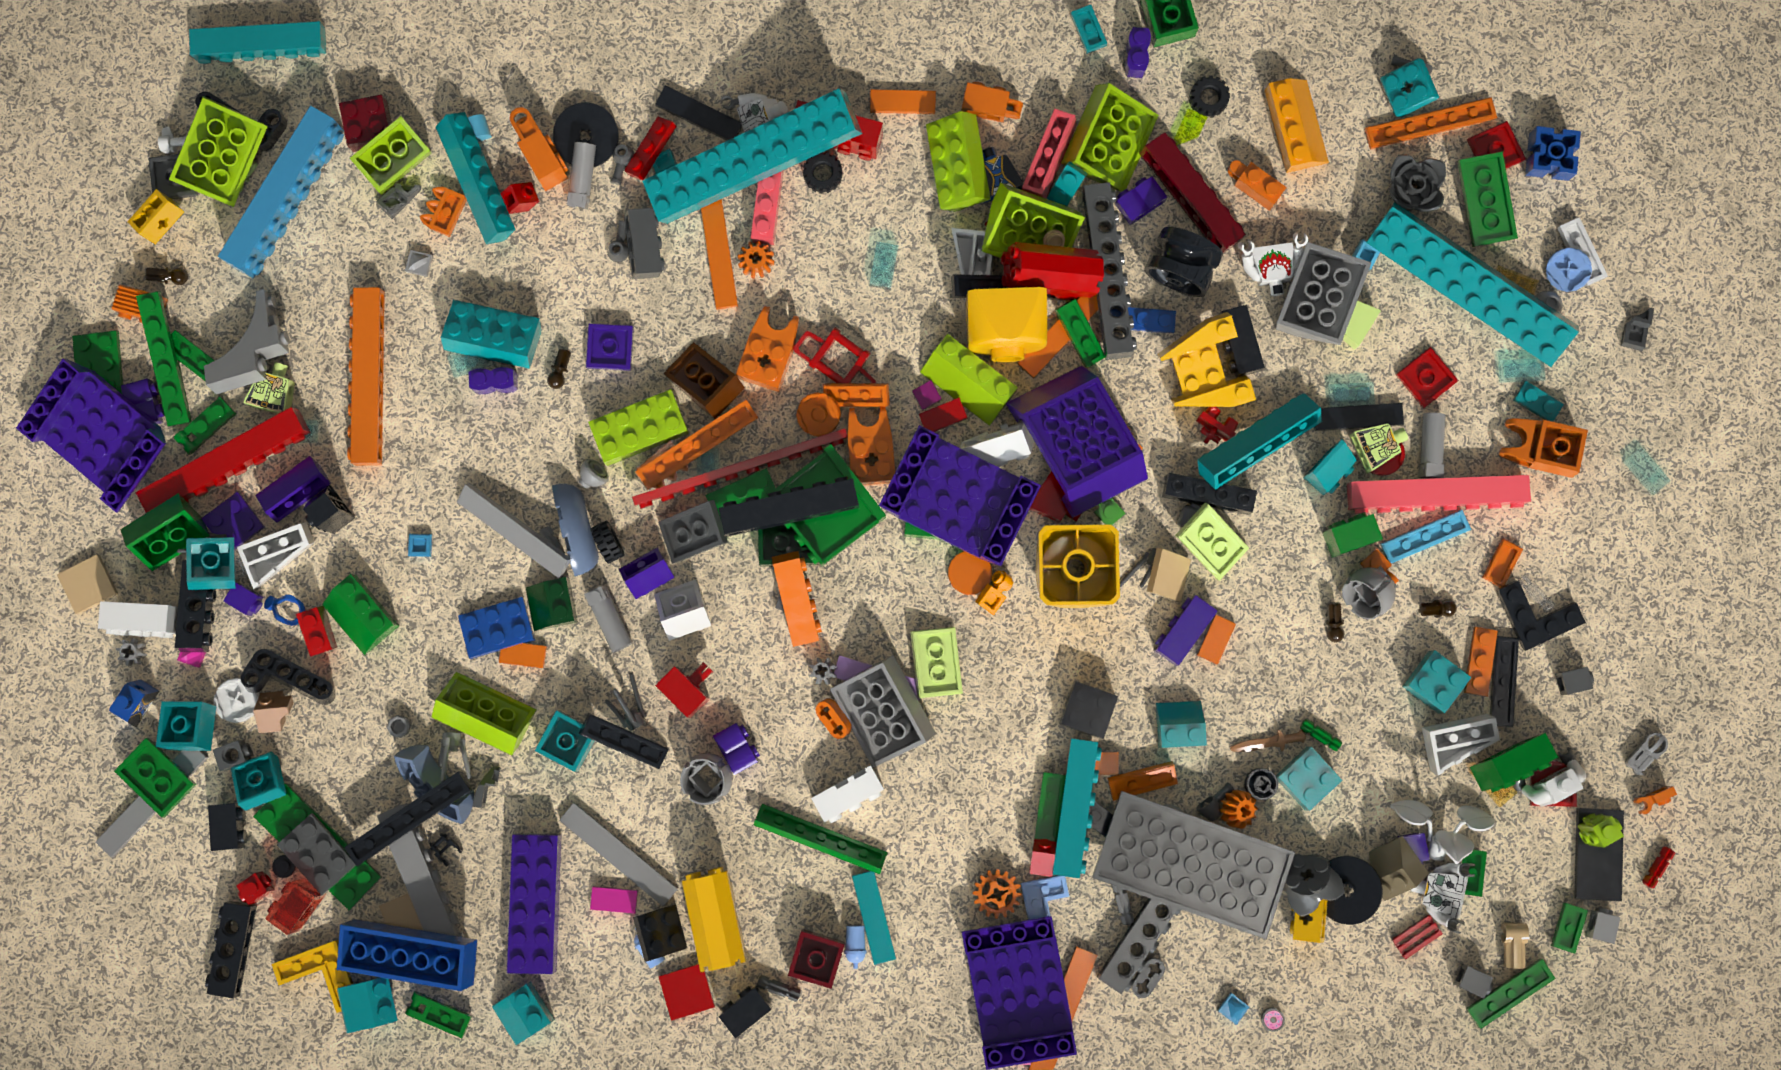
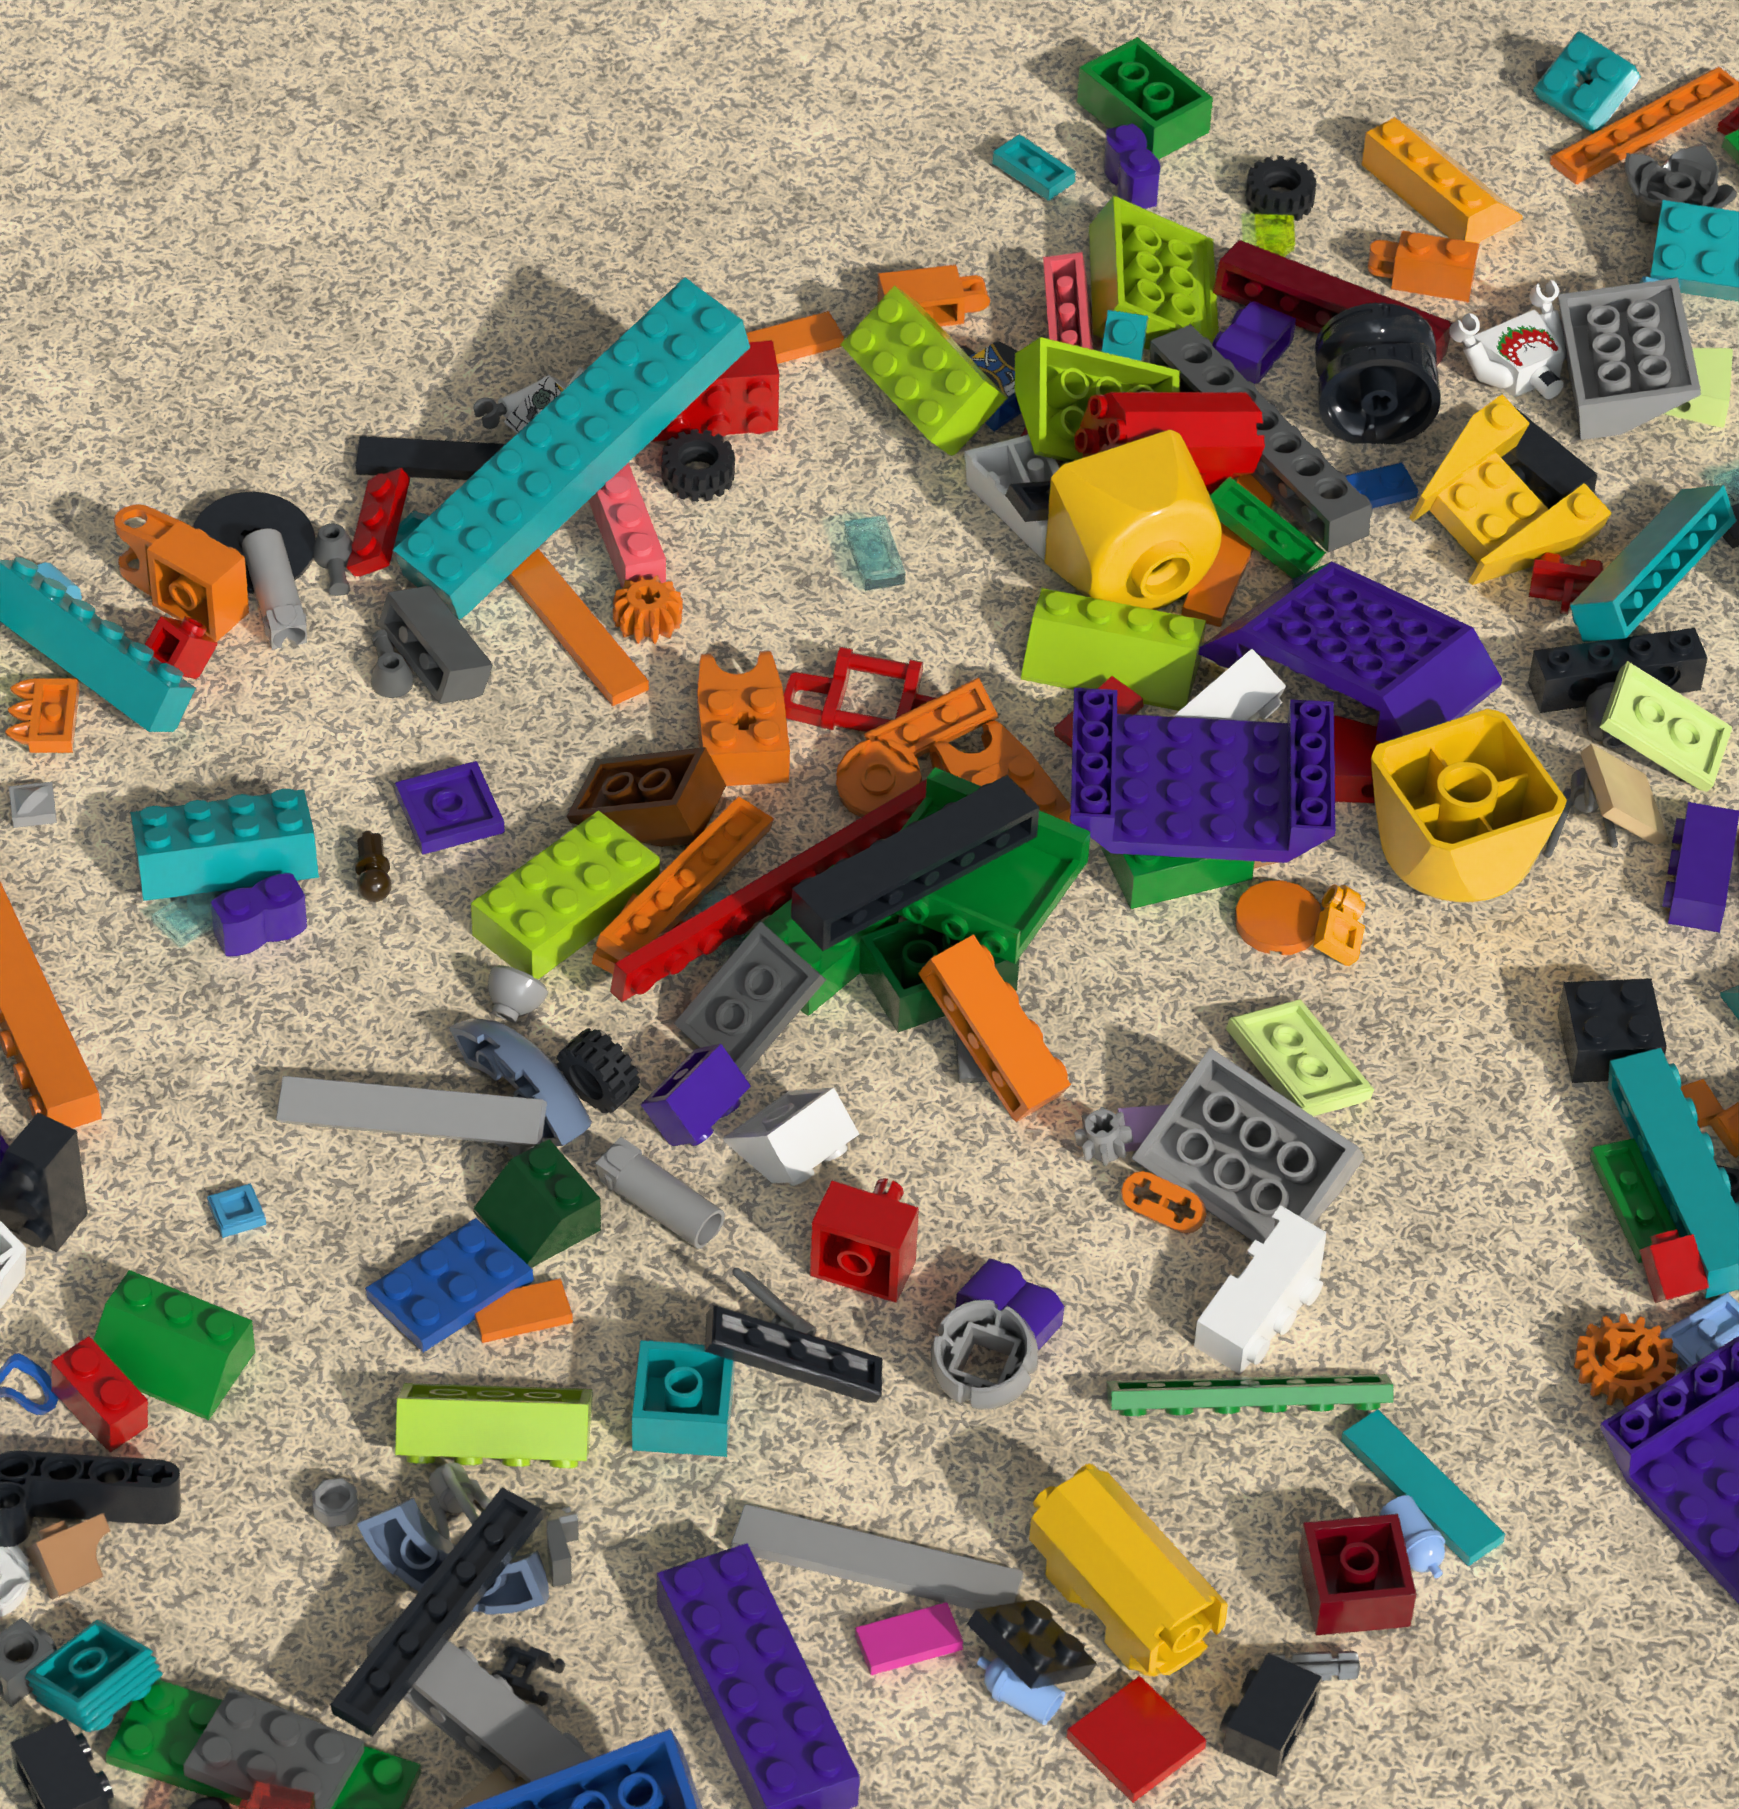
camera: 25 degrees left, 35 degrees down
(926, 395) = (1049, 701): magenta tile -> none

